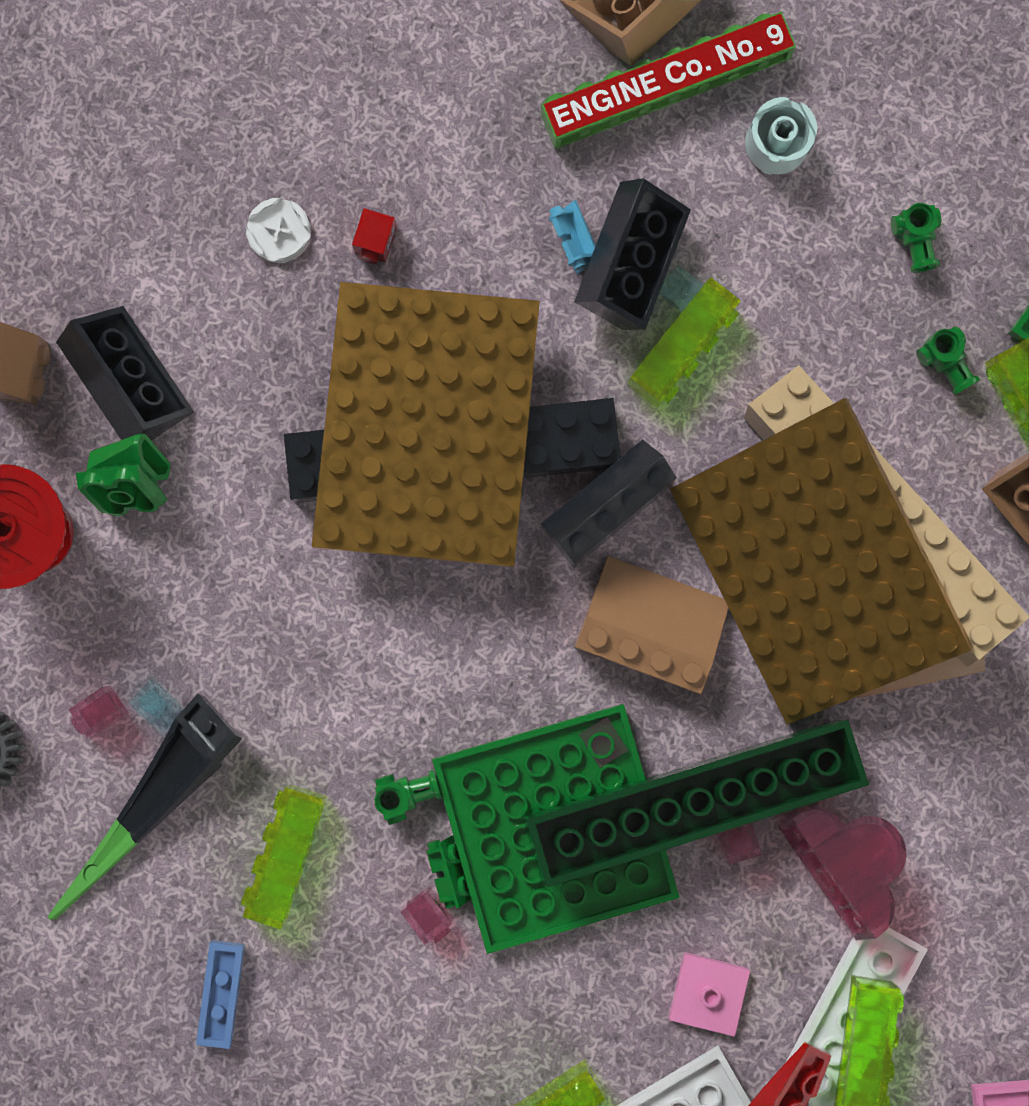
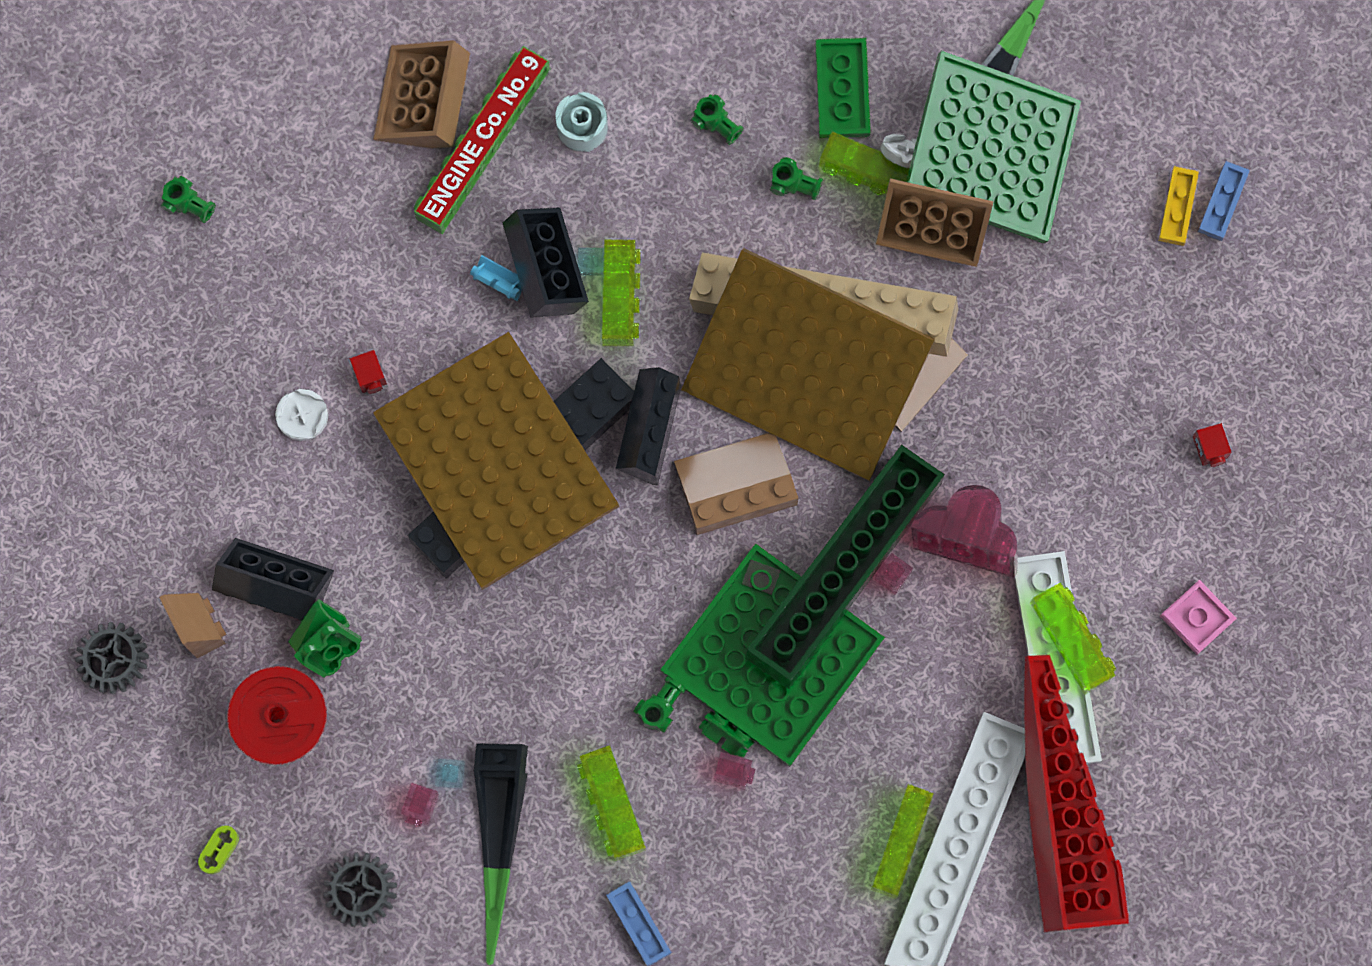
camera: 30 degrees left, 10 degrees down
(709, 994) = (952, 685): bright pink plate -> none

